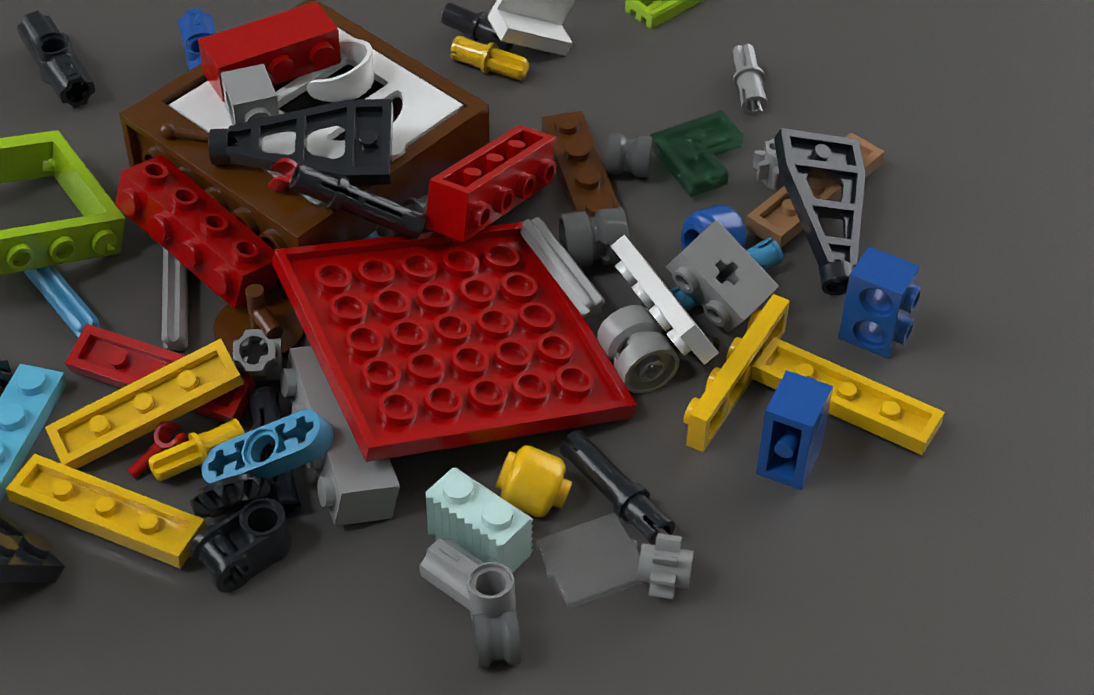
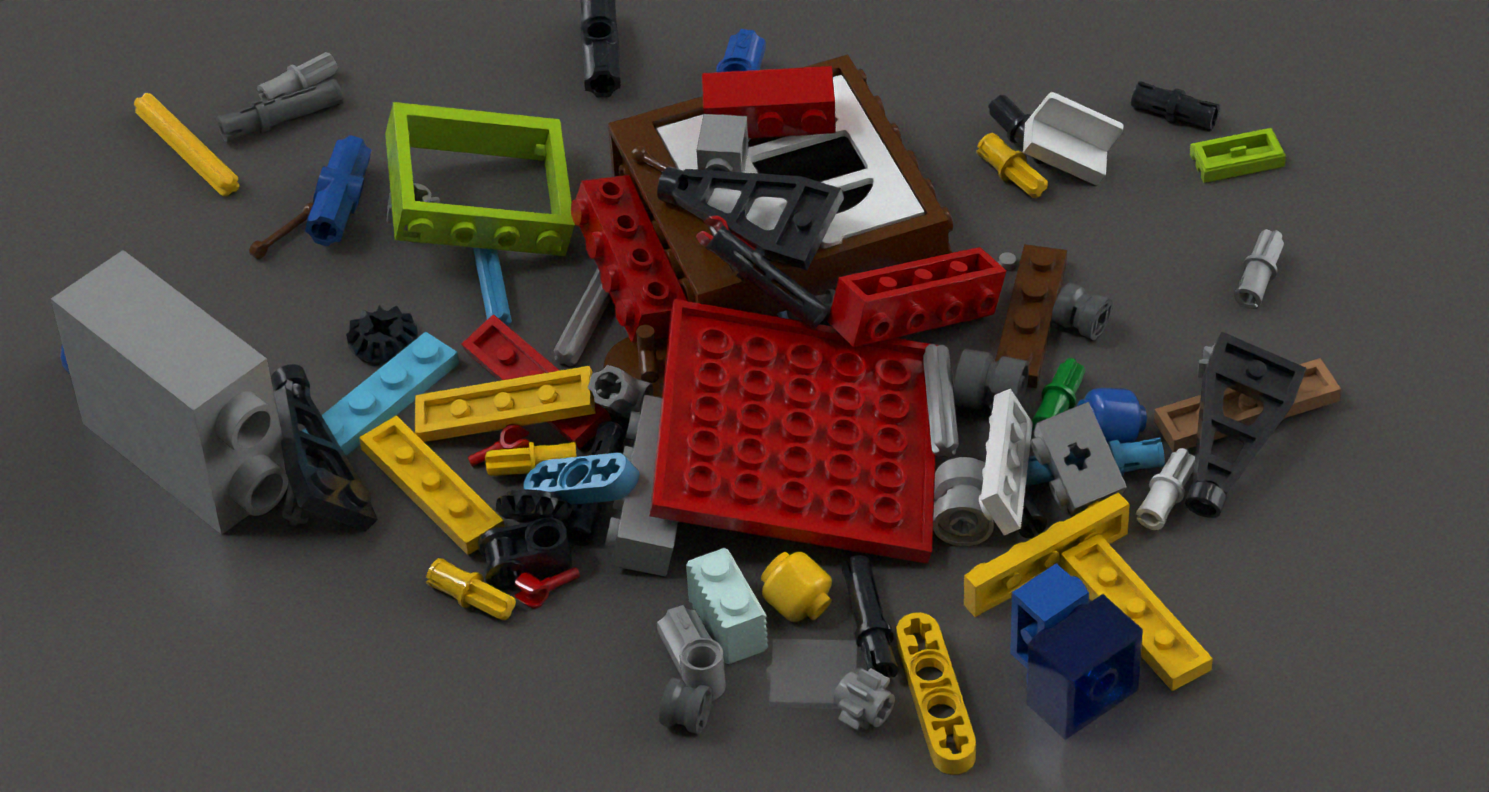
camera: 30 degrees right, 0 degrees up
(203, 602) = (469, 589): none -> yellow axle
(271, 579) = (535, 591): none -> red hand
(350, 84) = (832, 157): white helmet -> none
(654, 234) = (1061, 392): none -> green axle
(692, 149) = (1150, 319): clear green plate -> none
(724, 531) = (934, 692): none -> yellow beam
(798, 281) = (1166, 490): none -> white axle
(849, 458) = (1083, 666): none -> clear blue brick
(879, 302) = (1213, 534): blue brick -> none

